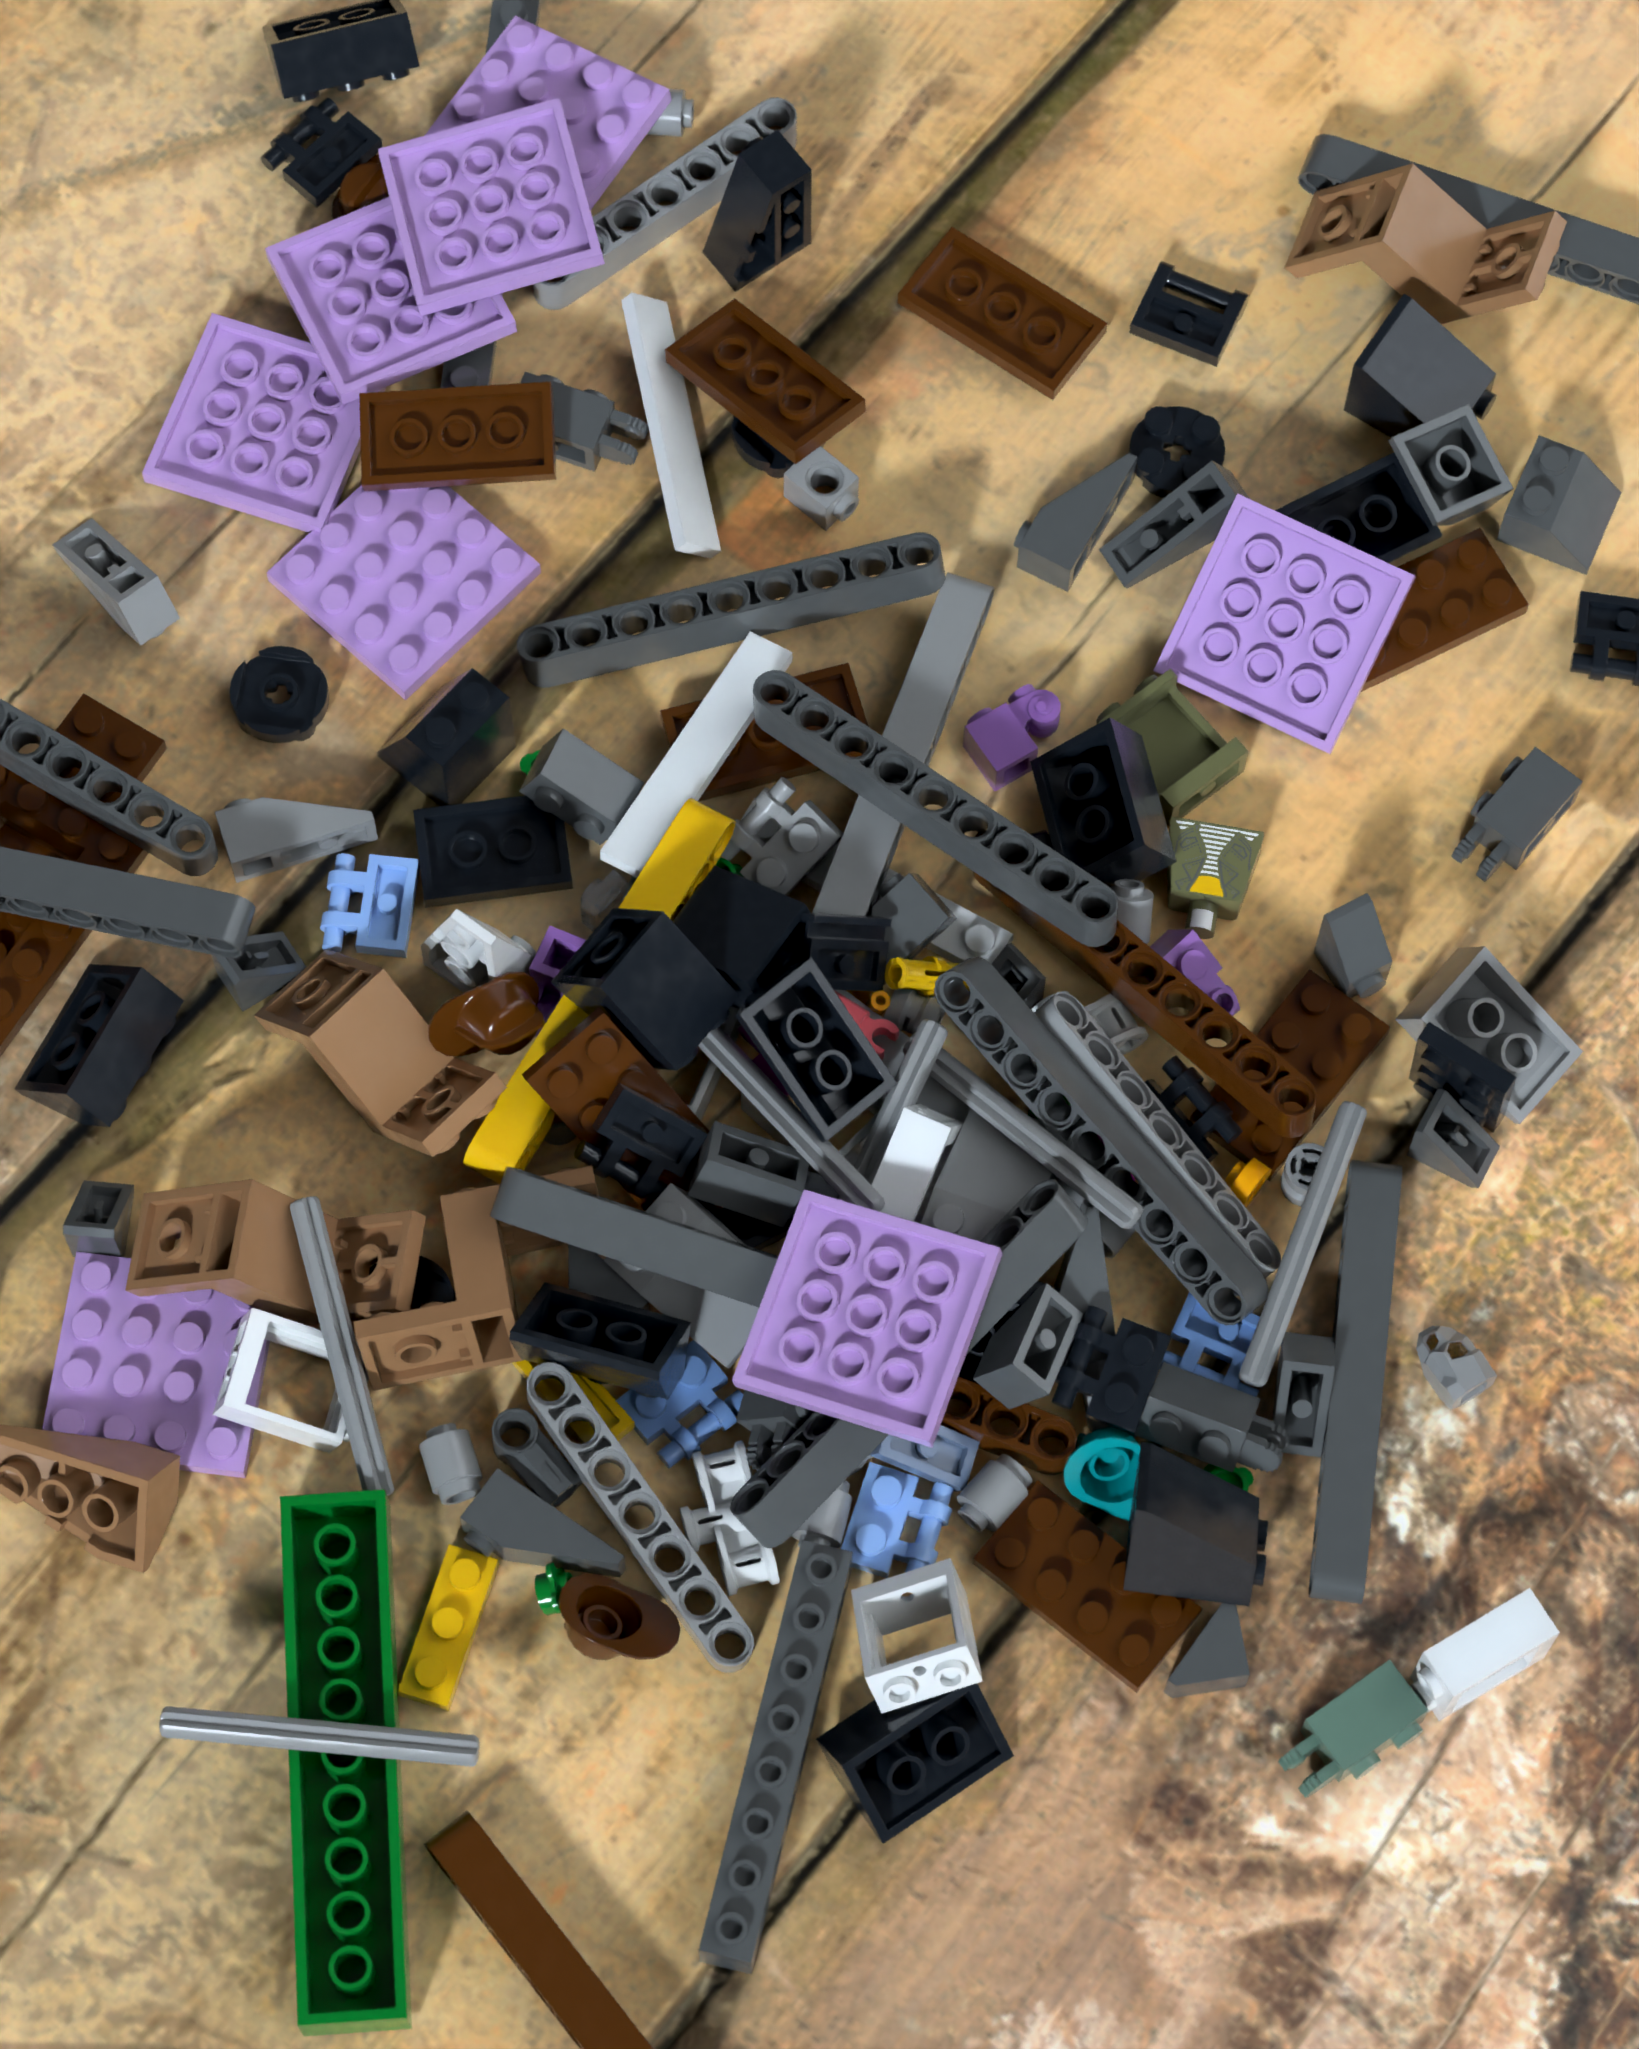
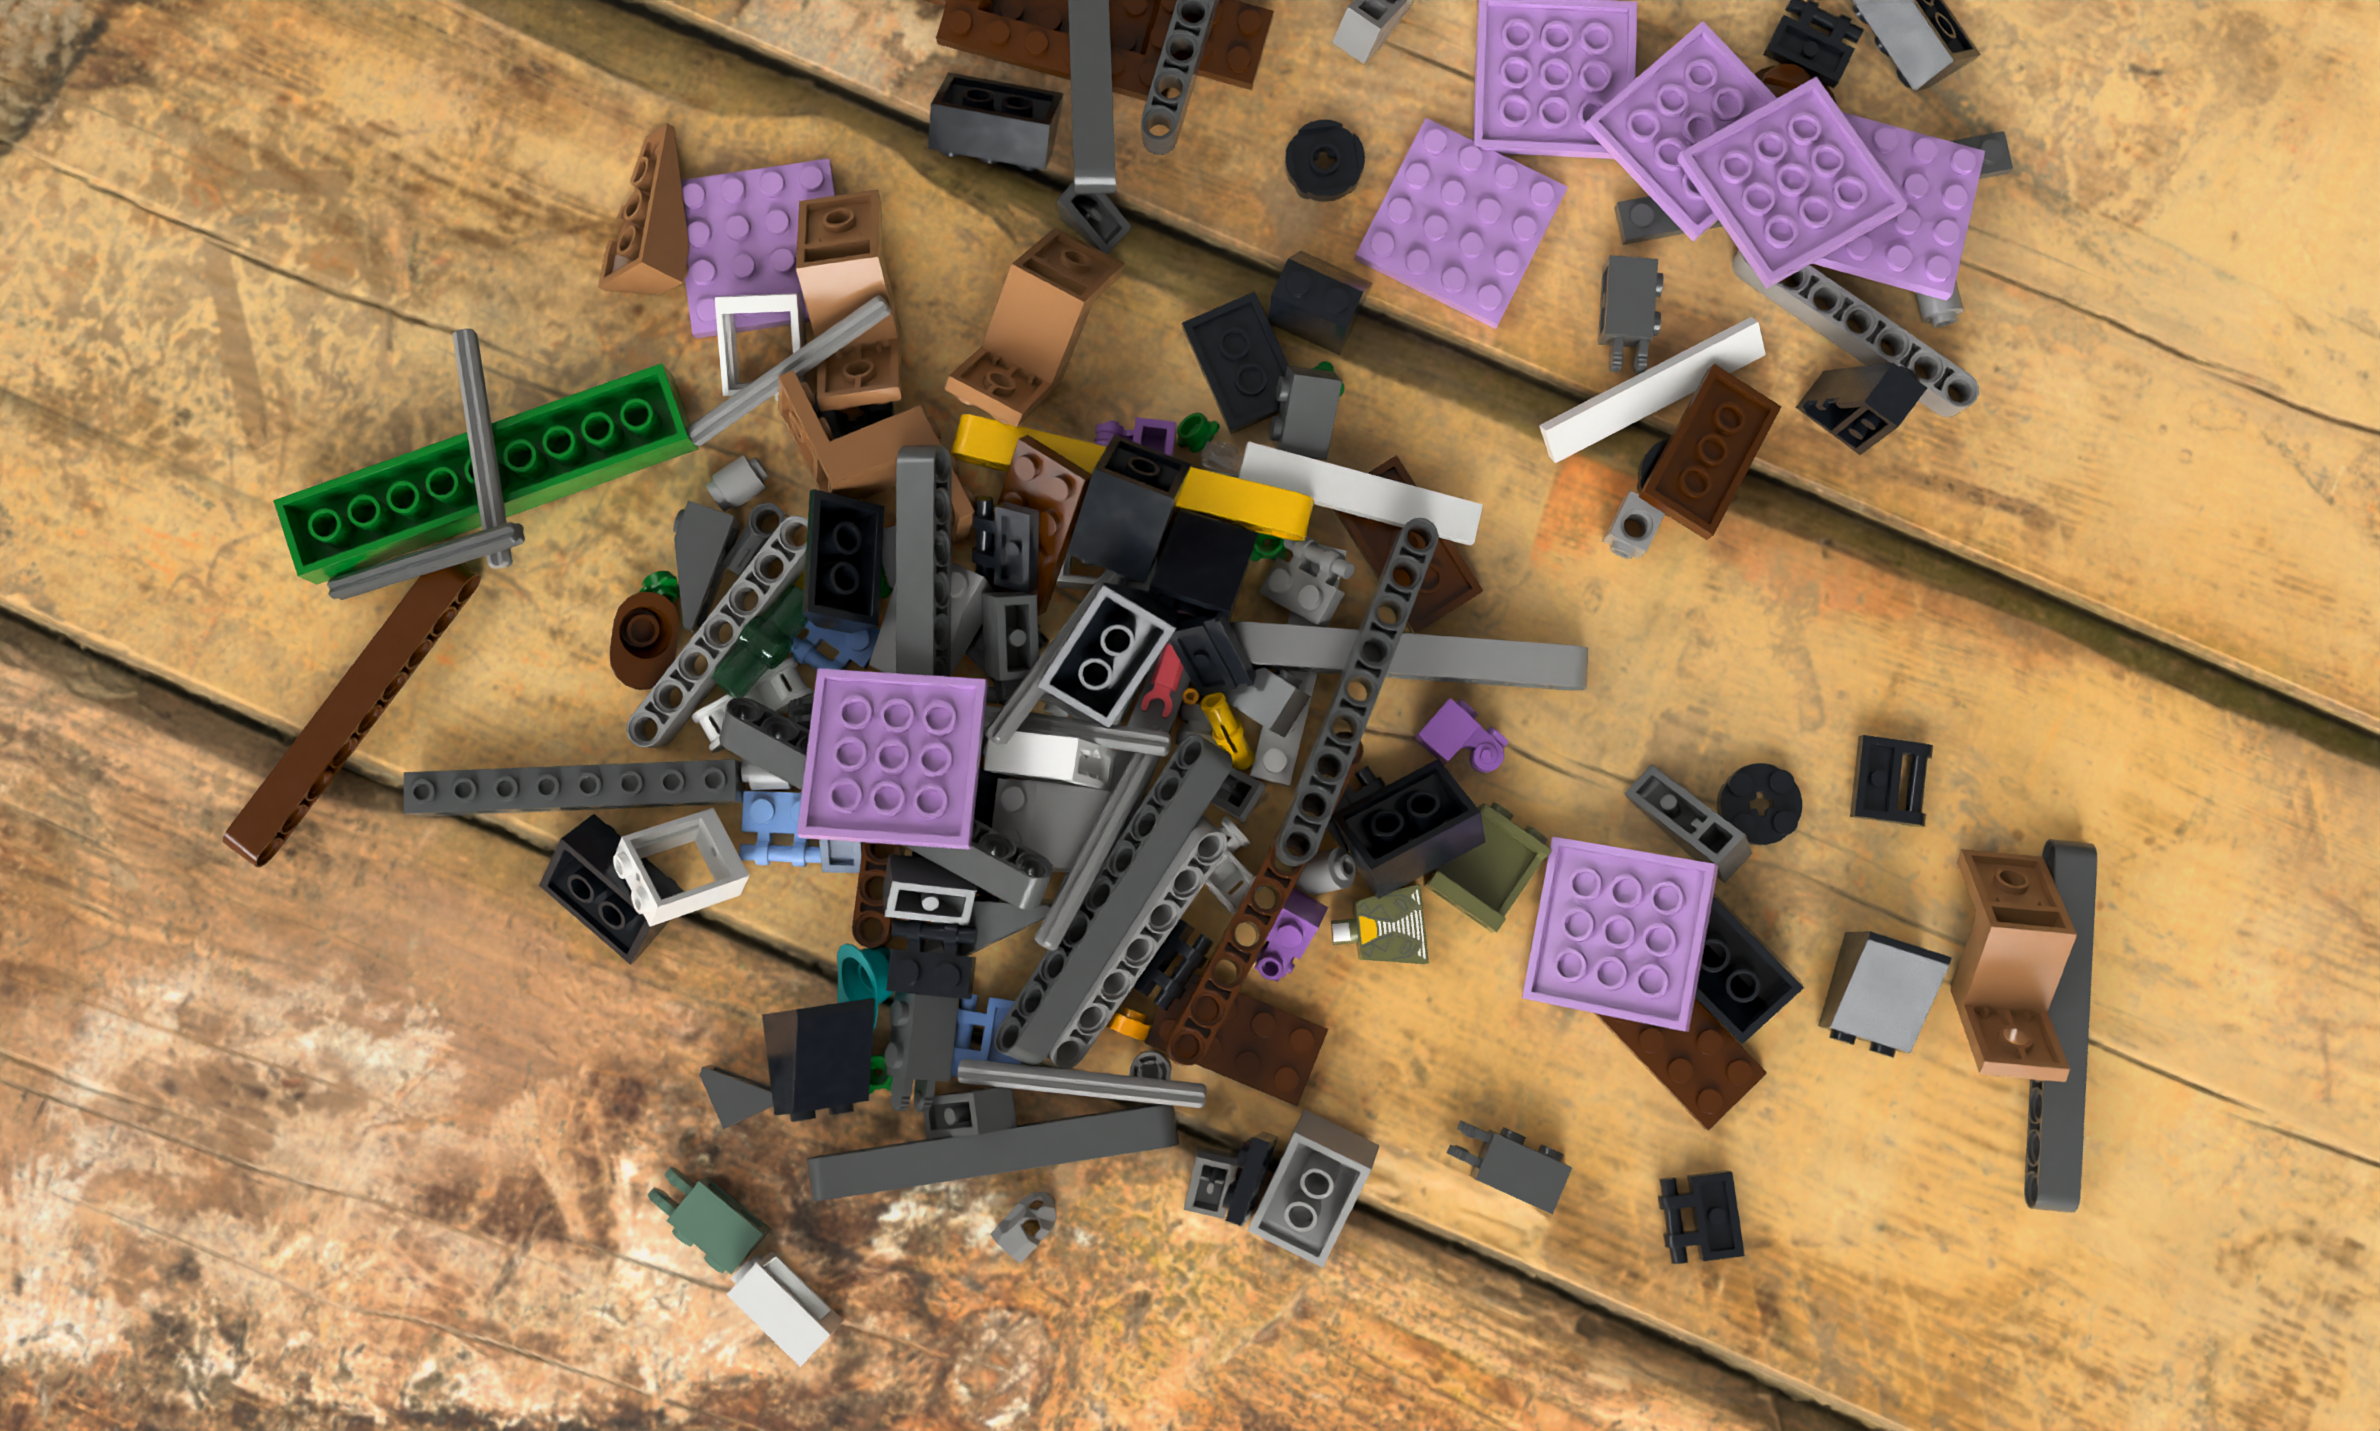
camera: 75 degrees right, 15 degrees up
(100, 1219) = (858, 165): dark grey slope -> none
(281, 833) = (1202, 190): light grey slope -> none
(385, 909) = (1169, 296): light blue plate -> none
(439, 1850) = (426, 560): none -> dark grey axle
(448, 1627) = (616, 519): yellow plate -> none
(457, 436) = (1580, 223): reddish brown plate -> none
(473, 952) = (1135, 380): white wedge -> none
(490, 1017) = (1079, 401): reddish brown piece -> none
(561, 915) = (1196, 431): none -> green plate
(668, 1466) = (762, 644): none -> clear green piece
(751, 596) = (1497, 503): dark grey beam -> none
(994, 1493) = (823, 894): light grey brick -> none
(1002, 313) = (1841, 627): reddish brown plate -> none
(1072, 524) = (1660, 735): dark grey slope -> none
(1076, 1582) = (775, 974): reddish brown plate -> none
(1354, 948) = (1347, 1063): dark grey slope -> none
(1451, 466) = (1805, 1036): dark grey slope -> none
(1559, 506) = (1806, 1136): dark grey slope -> none

